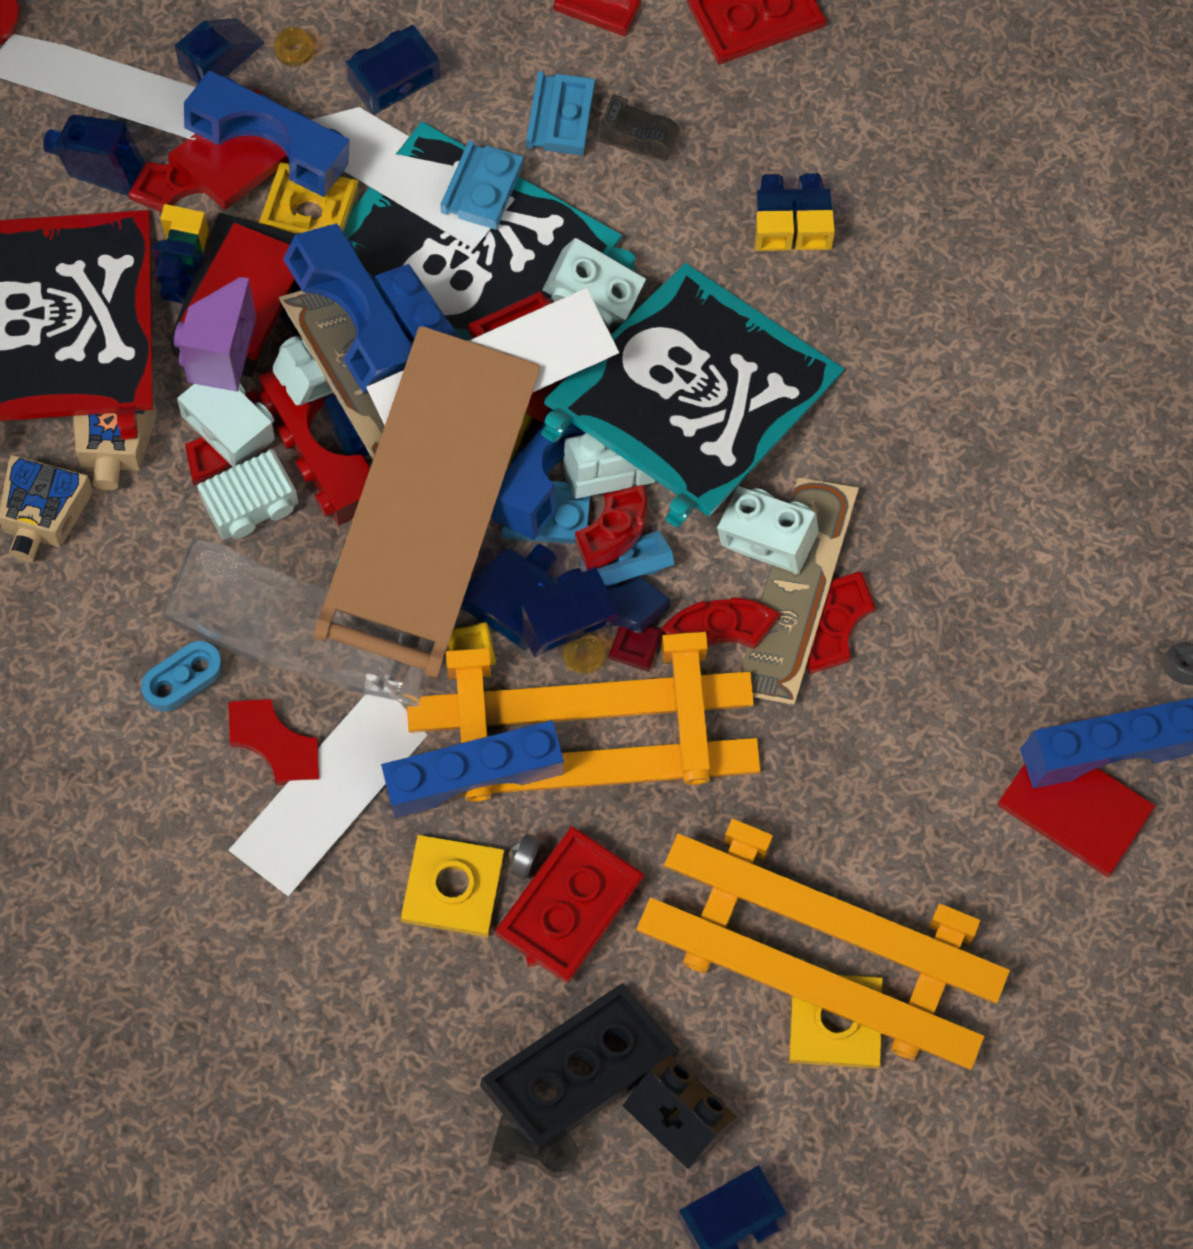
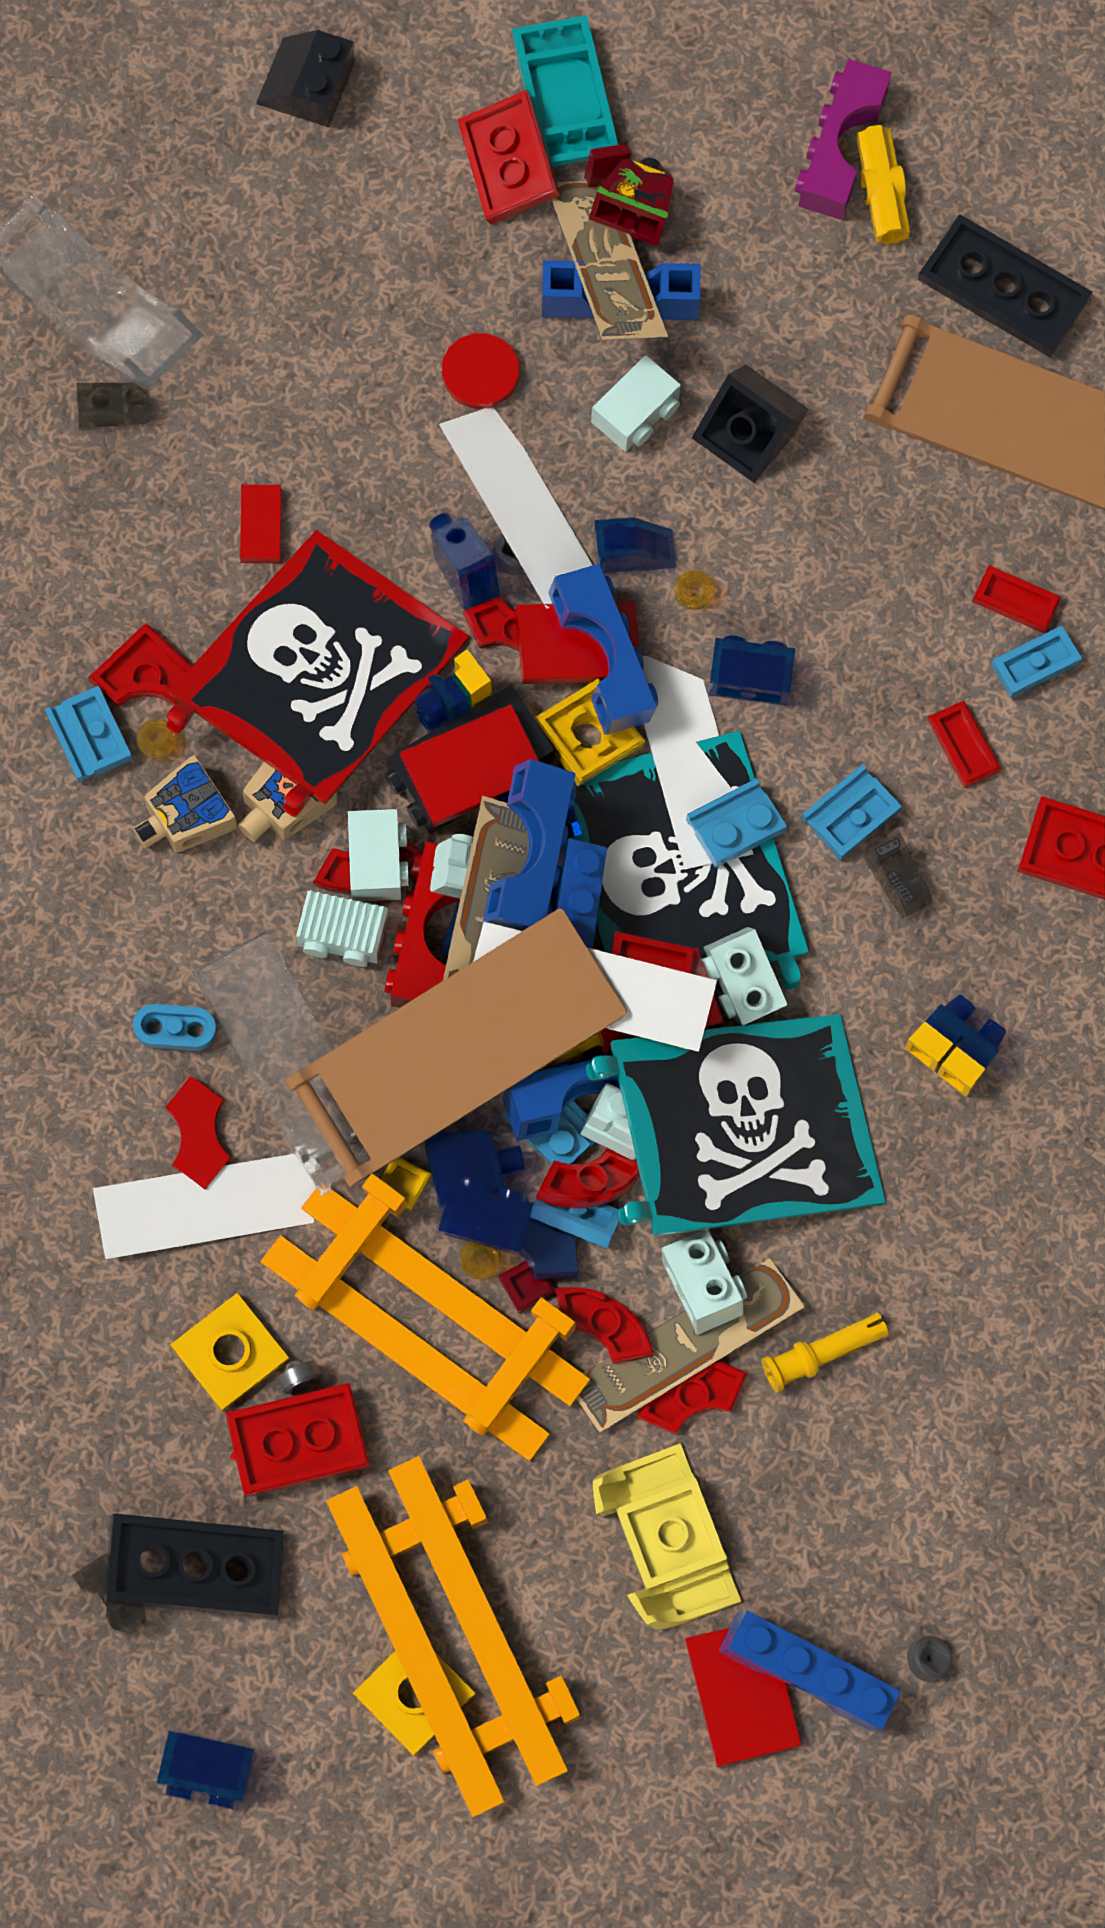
camera: 40 degrees right, 5 degrees up
(217, 336) = (410, 791): medium lavender slope -> none
(507, 757) = (315, 1277): blue arch -> none
(679, 1111) = (236, 1660): black brick -> none
(896, 523) = (807, 1358): none -> yellow pin
(917, 737) = (668, 1537): none -> light yellow piece

